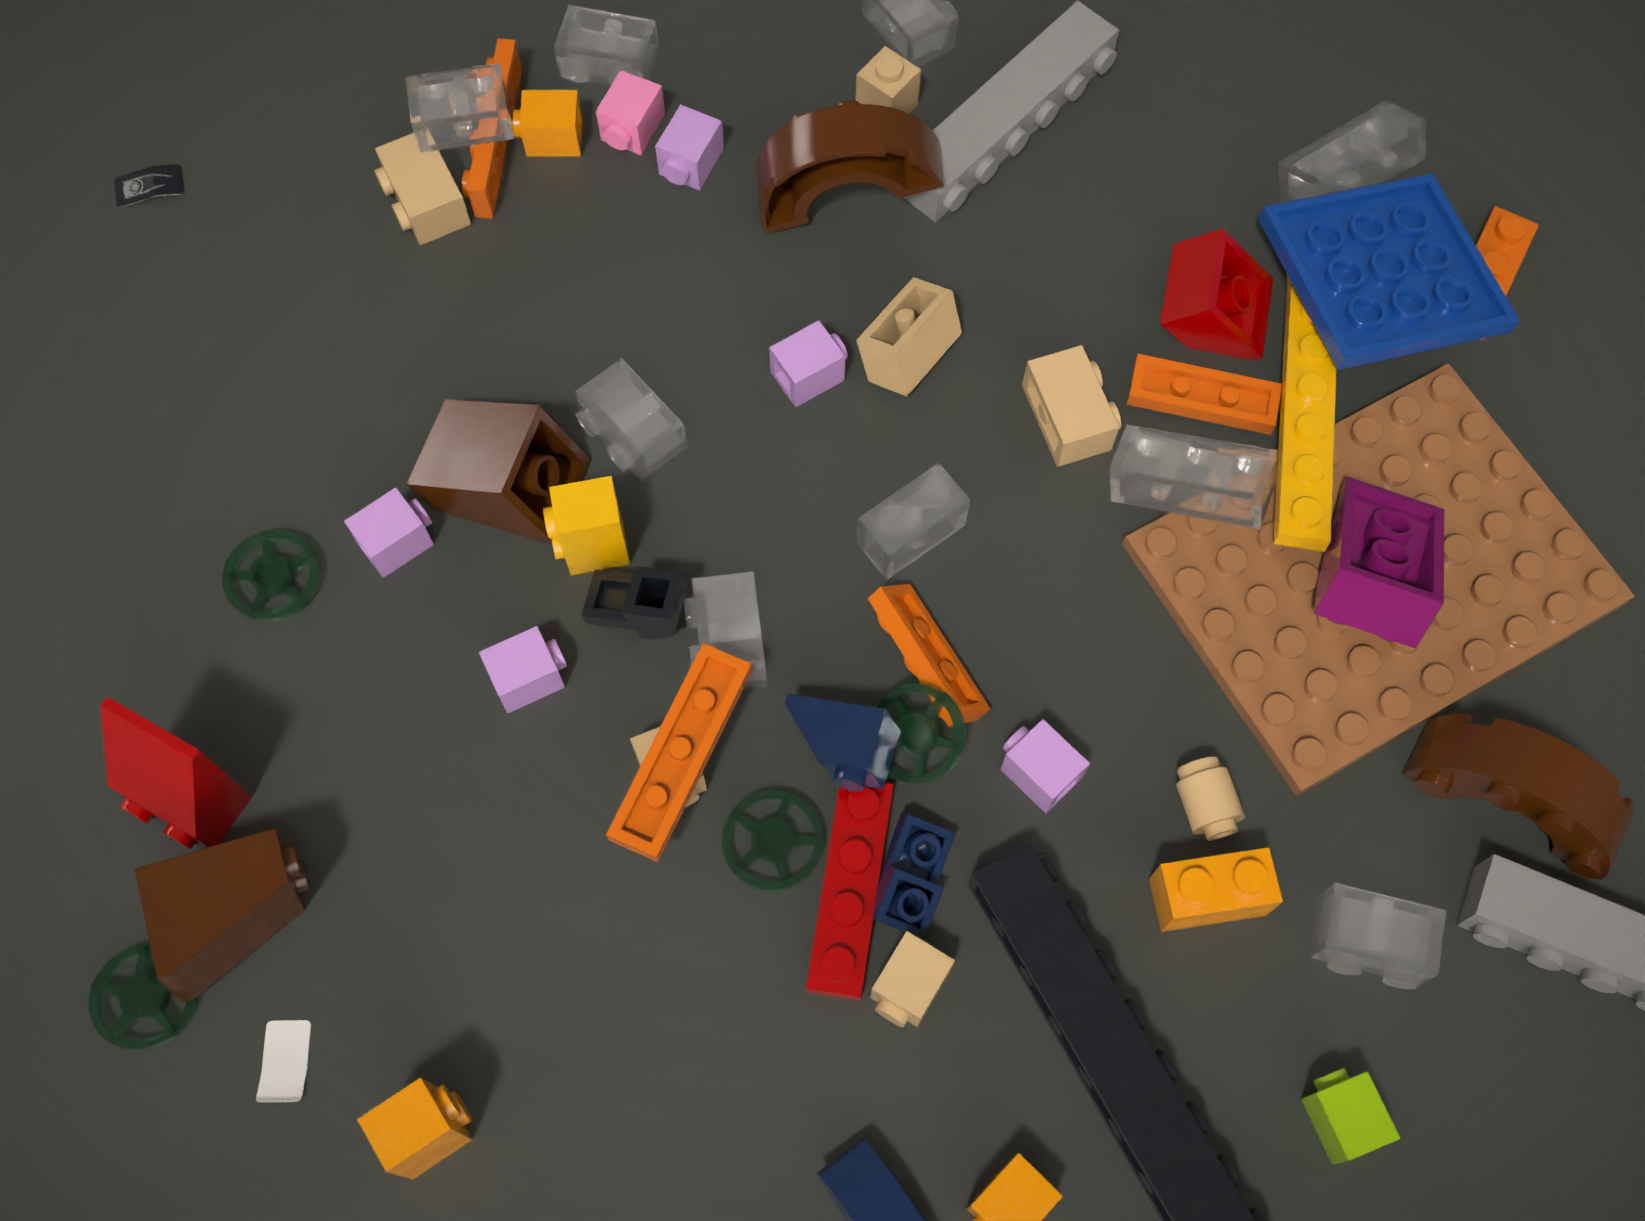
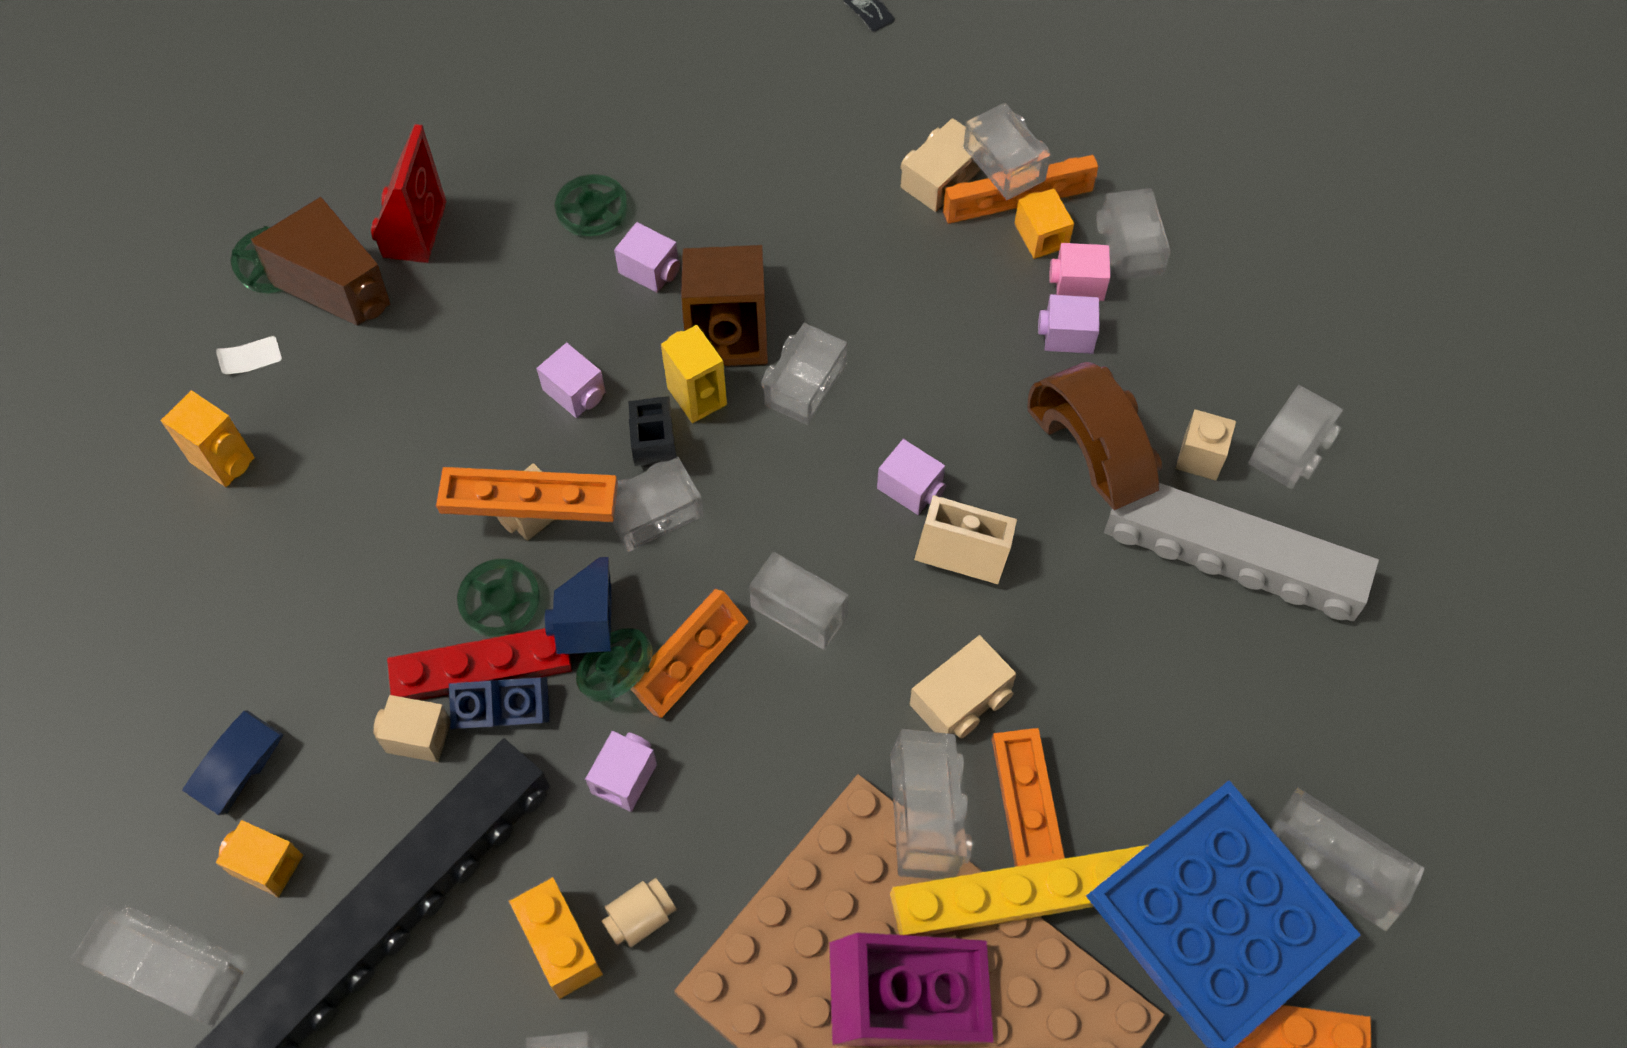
camera: 70 degrees right, 5 degrees down
(1217, 297) = (1130, 782): red slope -> none

